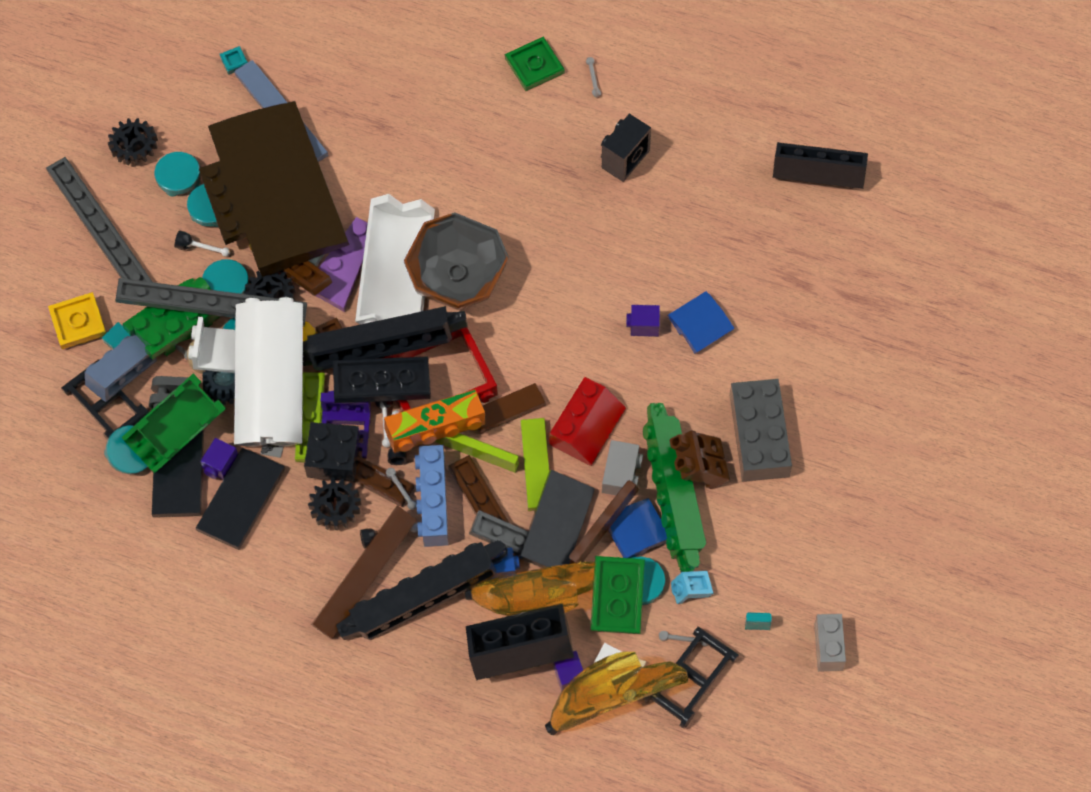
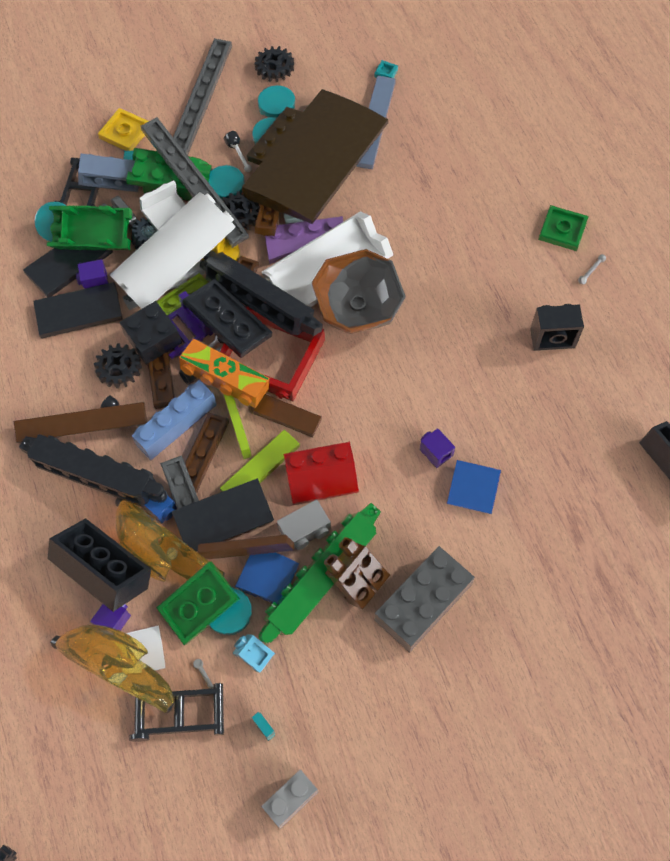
camera: 50 degrees right, 0 degrees up
(391, 473) = (170, 381): light grey hinge -> none

